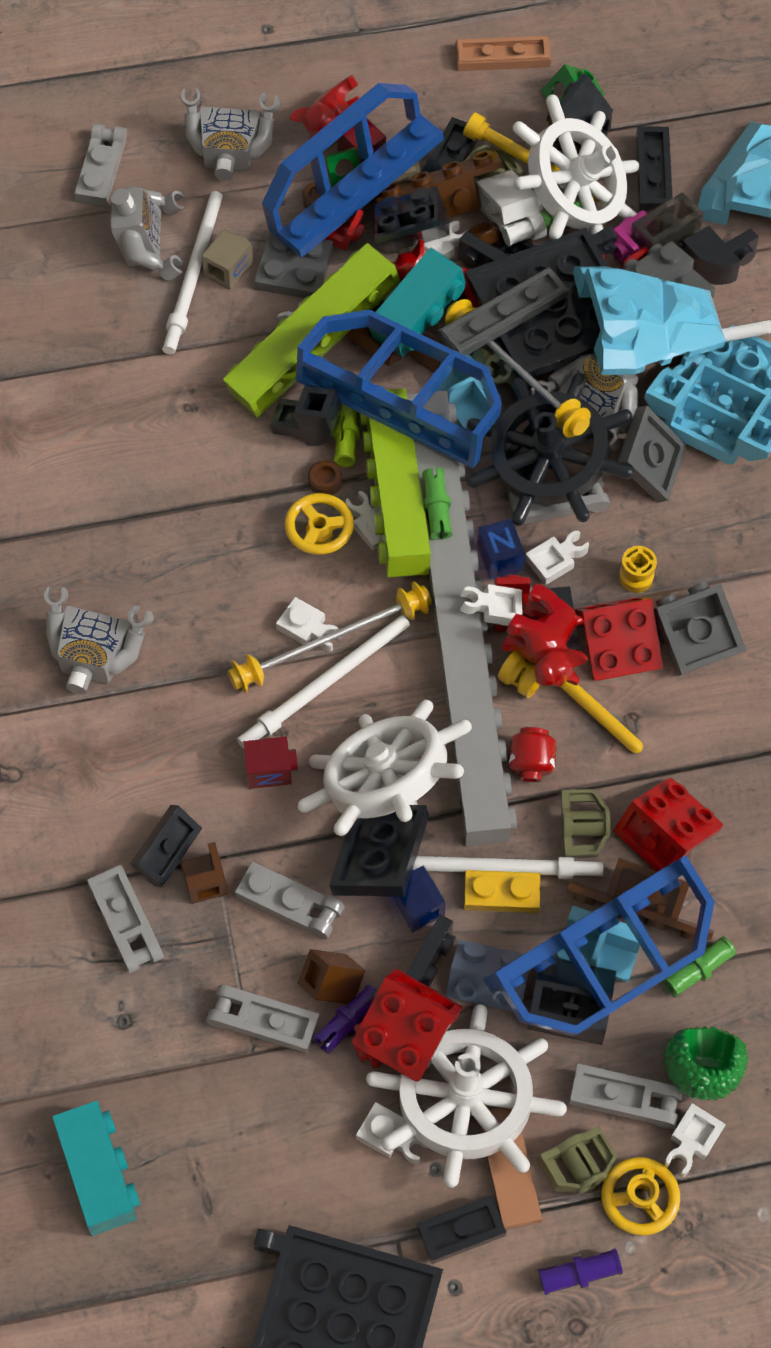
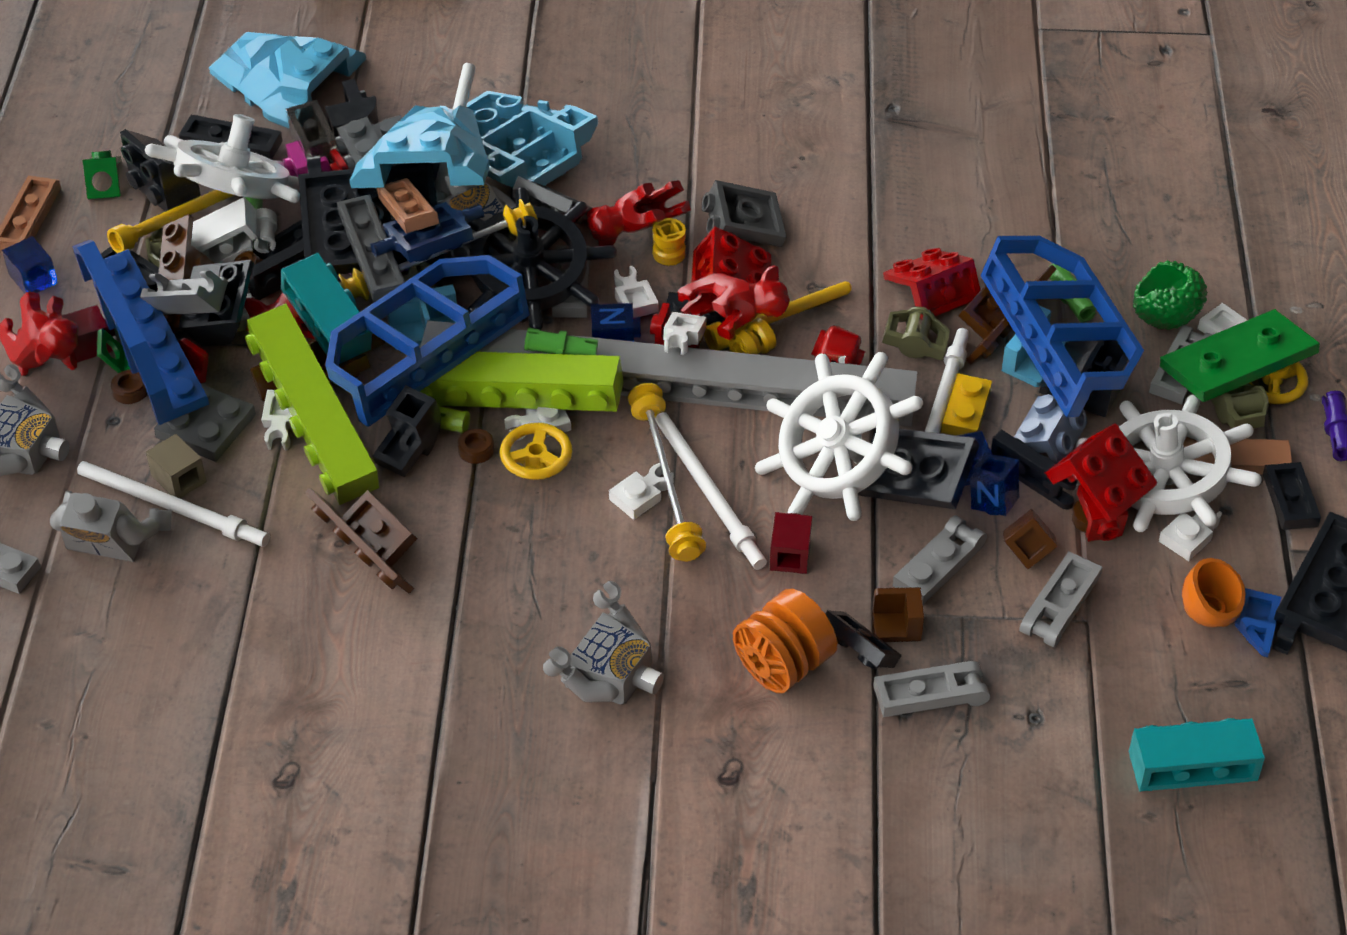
camera: 75 degrees left, 15 degrees down
(132, 776) = (785, 640): none -> orange wheel
(187, 423) = (374, 530): none -> reddish brown bracket
(284, 1209) = (1257, 619): none -> blue slope
(289, 1158) = (1213, 593): none -> orange hat
(346, 1017) = (1074, 534): dark purple pin -> none
(381, 928) = (994, 484): none -> clear blue brick
(391, 189) = (186, 295): none -> light grey hinge
(431, 75) = (30, 266): none -> clear blue brick
(526, 348) = (421, 244): none -> dark blue plate
(552, 322) = (407, 205): none -> nougat tile
(634, 1146) = (1239, 355): none -> green plate
(653, 527) = (635, 212): none -> red animal

